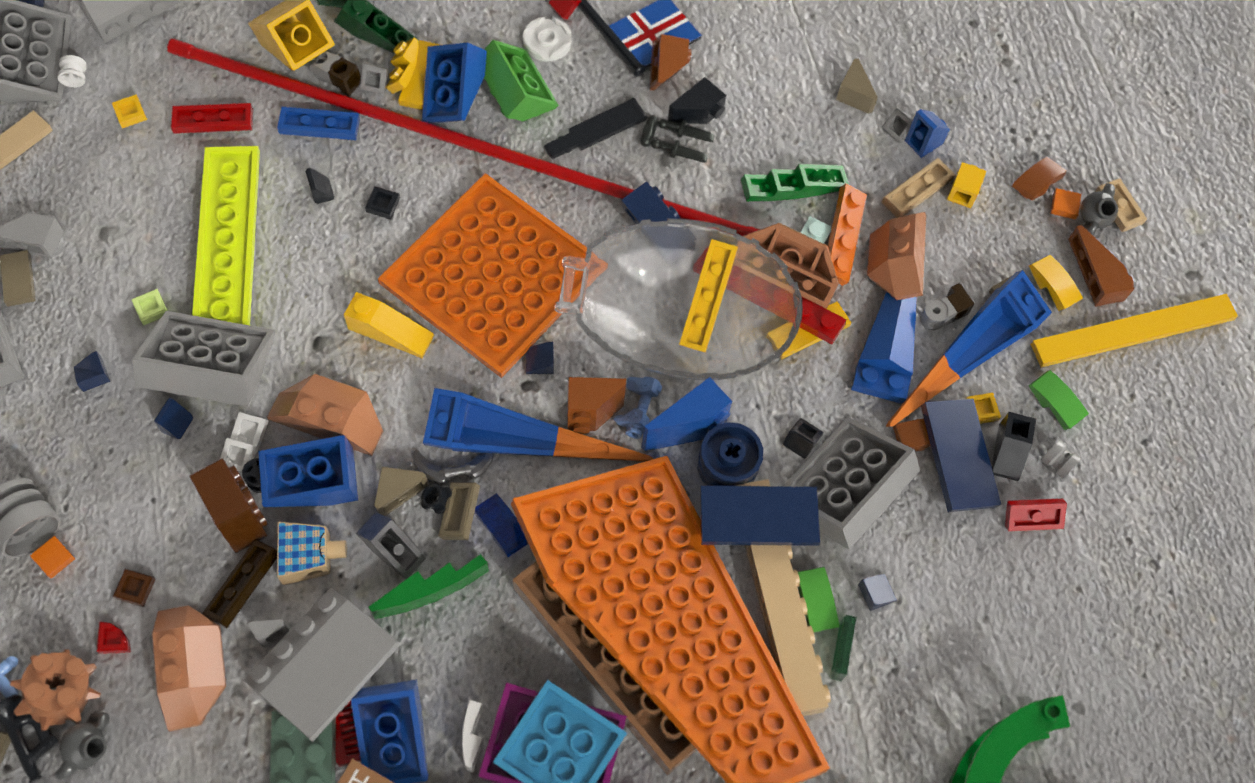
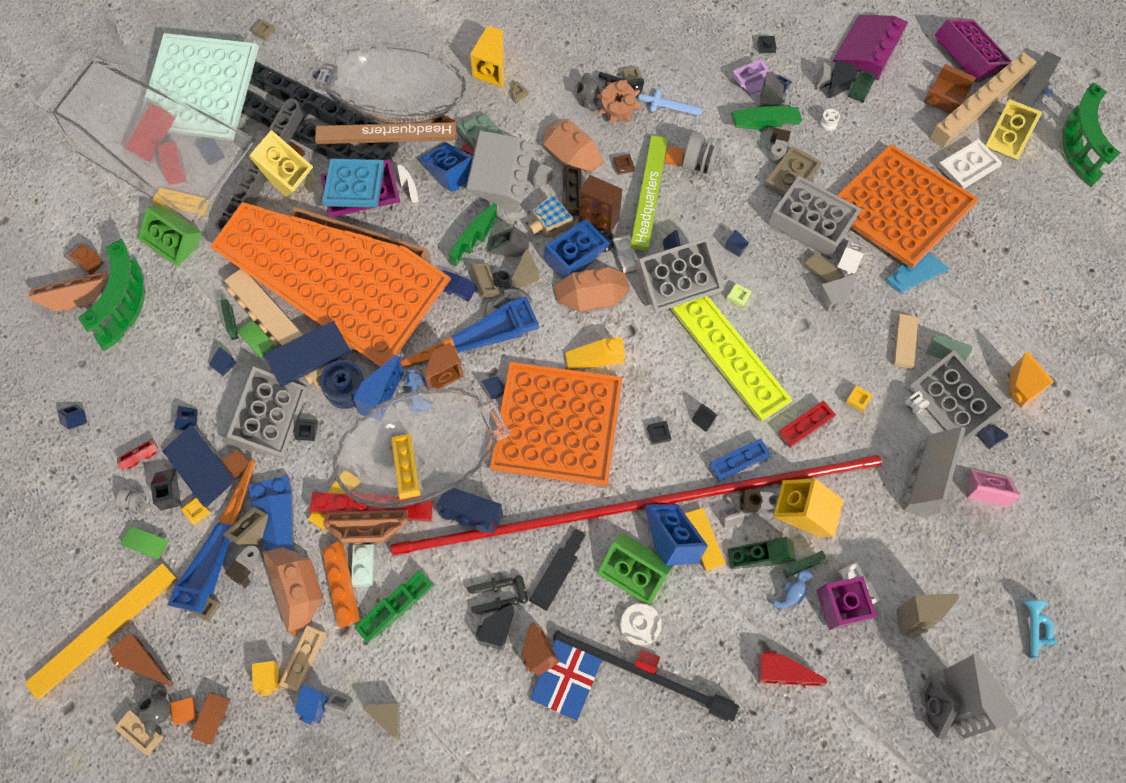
camera: 155 degrees right, 0 degrees up
(112, 639) = (614, 139): red tile -> none
(134, 514) = (649, 193): none -> lime tile
(404, 63) = (721, 538): yellow slope -> none
(929, 337) = (249, 528): none -> dark tan slope
(955, 534) = (185, 417): none -> dark blue slope
(1051, 274) = (171, 632): yellow slope -> none
(1110, 621) = (72, 416): none -> dark blue slope

